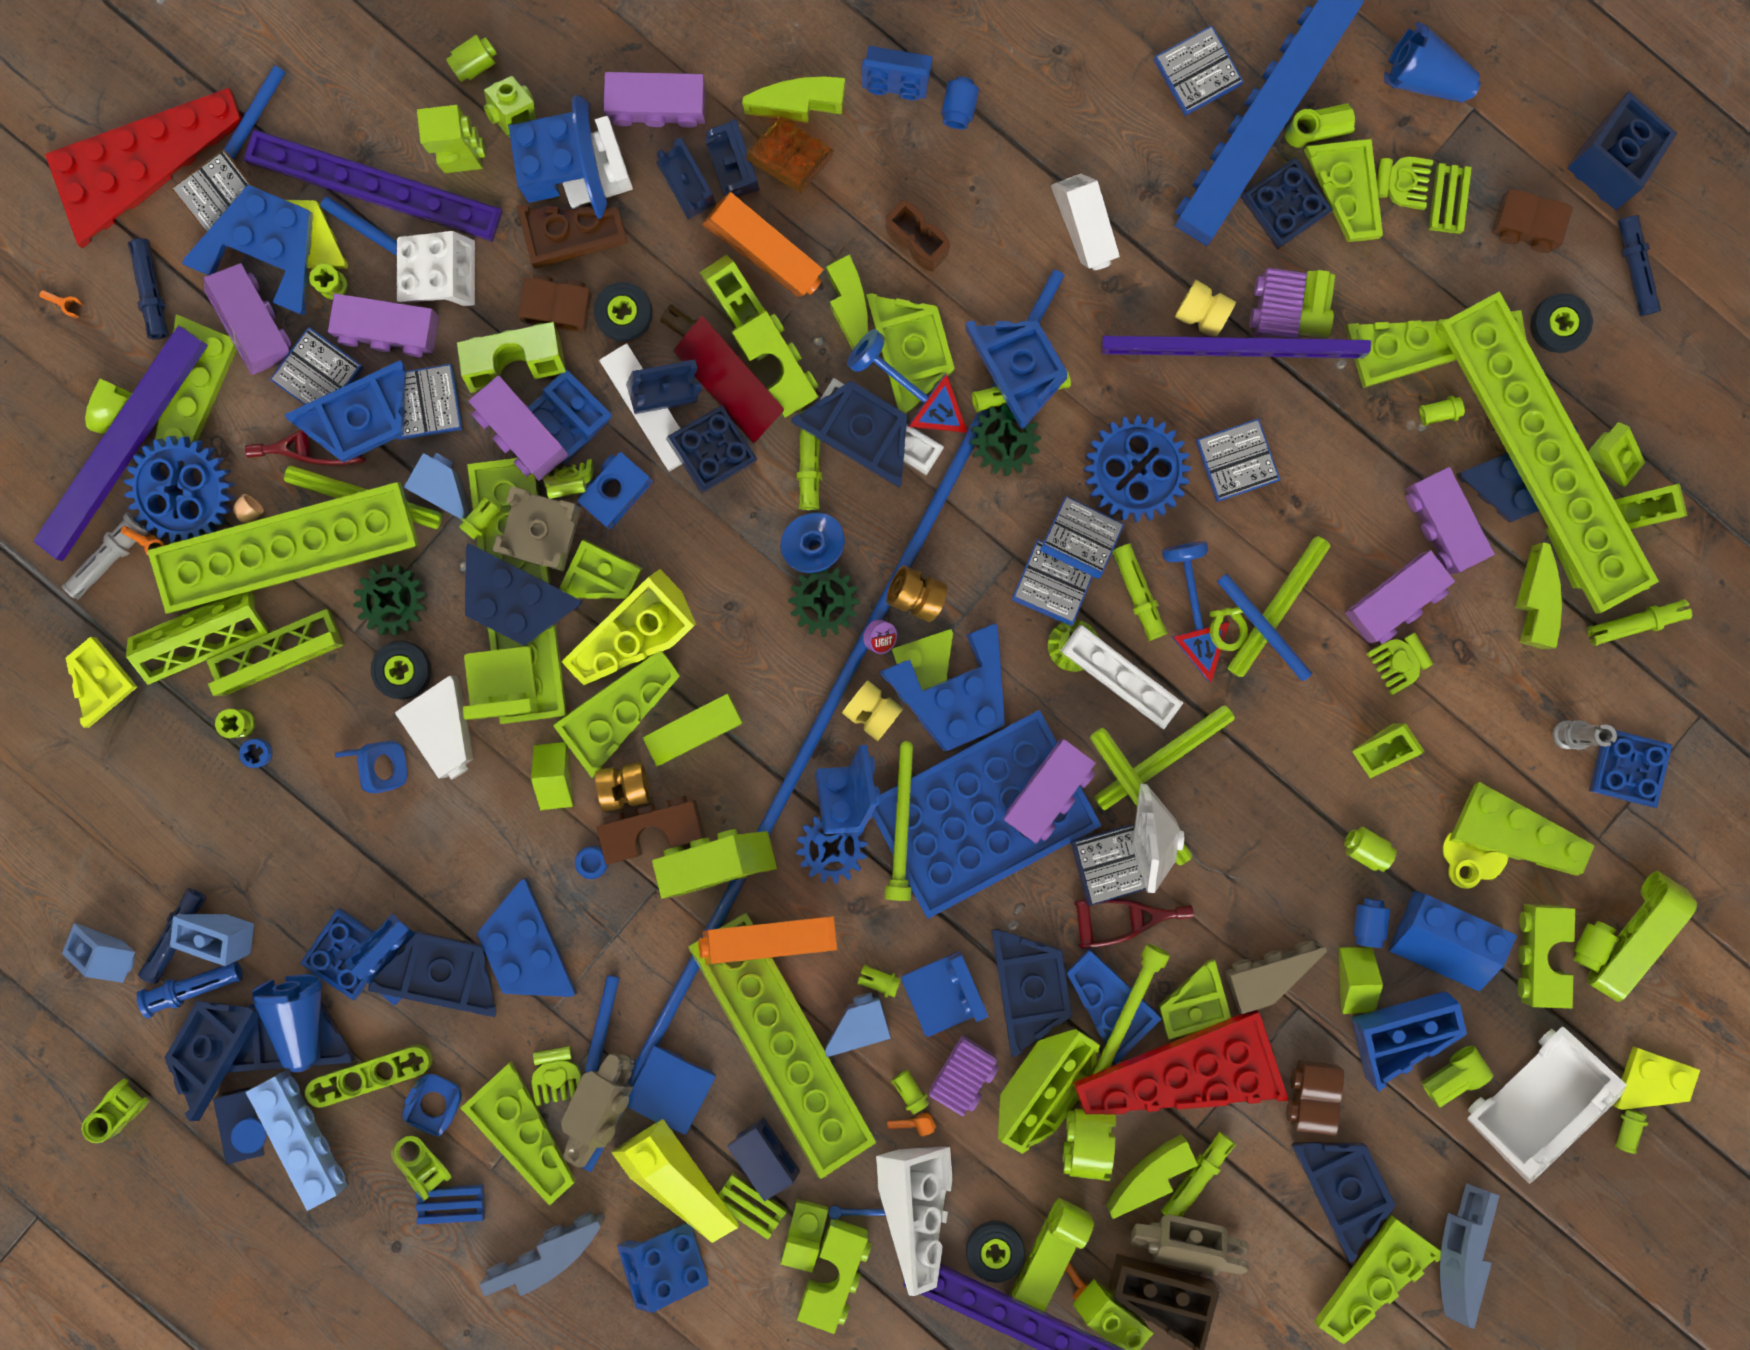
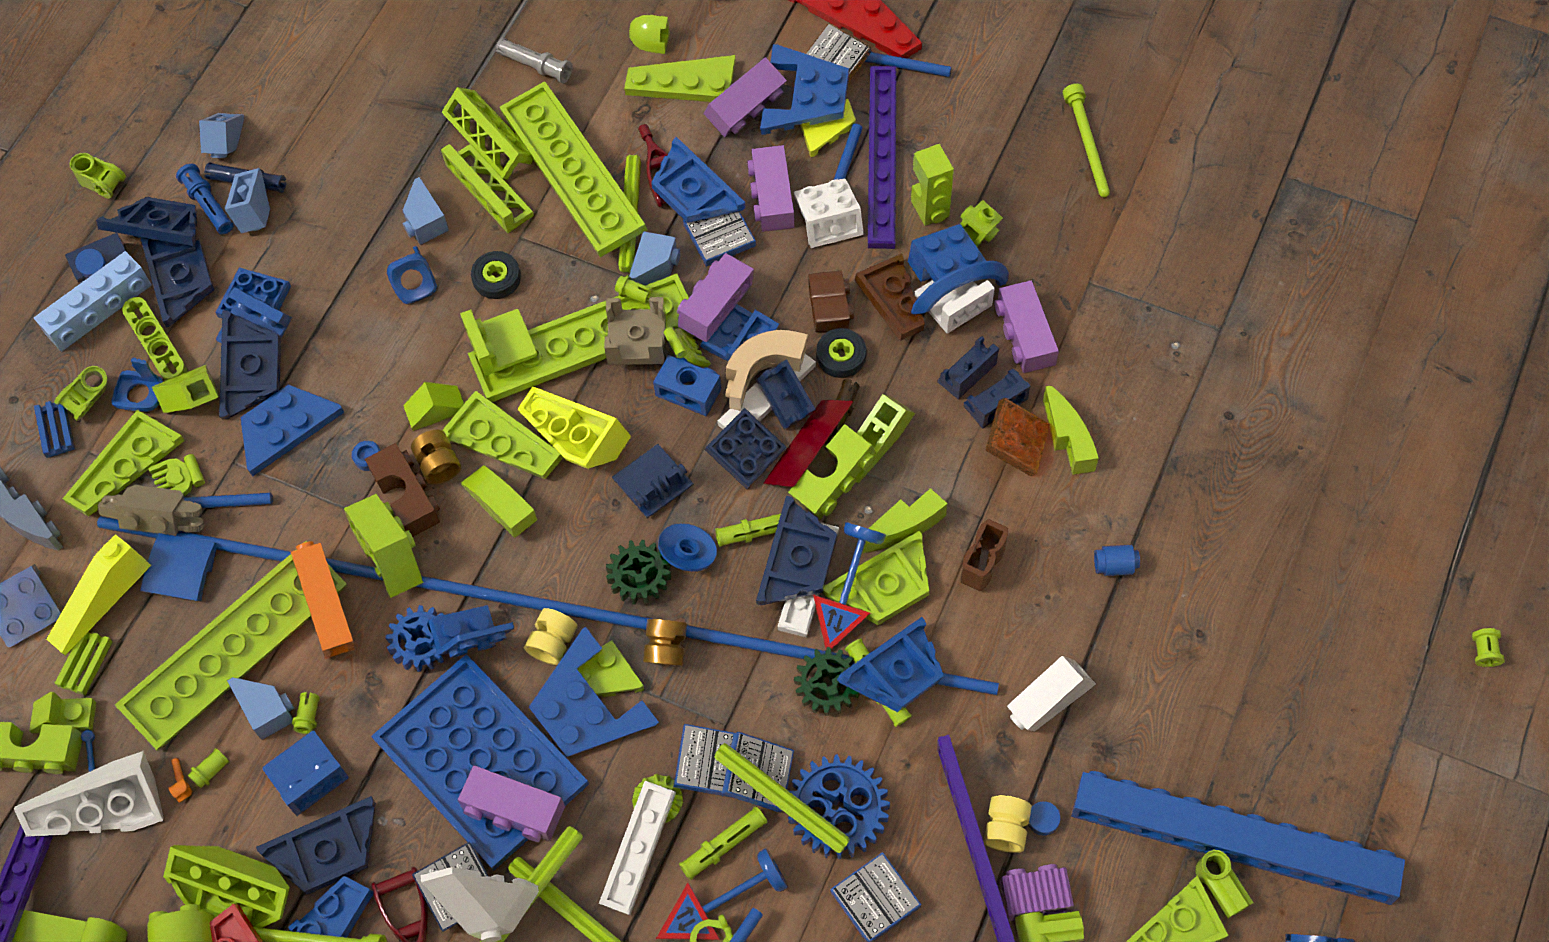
camera: 80 degrees right, 25 degrees down
(97, 680) = (436, 79): neon yellow wing -> none
(120, 443) = (624, 45): dark purple tile -> none
(143, 540) = (552, 77): orange hand -> none
(146, 280) = (739, 37): dark blue pin -> none
(150, 483) = (599, 90): blue gear -> none
(225, 725) = (424, 168): lime bush -> none
(247, 509) = (598, 139): light nougat hinge -> none
(247, 747) = (402, 187): blue bush -> none
(291, 1018) = (189, 264): blue cone -> none
(293, 737) = (423, 214): none -> medium blue slope
(315, 368) = (723, 152): light grey tile -> none
(322, 273) = (799, 137): lime bush -> none
(382, 609) = (550, 251): dark green gear -> none
(439, 727) = (440, 317): white slope -> none
(453, 1047) = (186, 390): none -> lime slope
(472, 58) = (1008, 191): lime brick -> none
(486, 356) = (787, 295): lime arch -> none
(511, 598) = (573, 332): dark blue wing -> none
(599, 574) = (614, 391): lime wing -> none
(604, 383) = (760, 353): none -> tan arch
(717, 559) = (653, 480): none -> dark blue hinge
(763, 245) = (931, 436): orange slope -> none
(764, 1159) = (127, 659): dark blue hinge -> none
(880, 636) = (619, 626): medium lavender tile -> none
(896, 73) = (1123, 502): blue bracket -> none
(898, 884) = (395, 700): lime piece -> none
(963, 1076) = (230, 809): medium lavender brick -> none
(1007, 1239) = (80, 895): black bush -> none
(1124, 520) = (782, 798): none -> lime axle
(1198, 70) = (1228, 757): light grey tile -> none
(1205, 270) = (1044, 818): none -> blue tile
(1286, 203) = (1138, 877): dark blue tile -> none

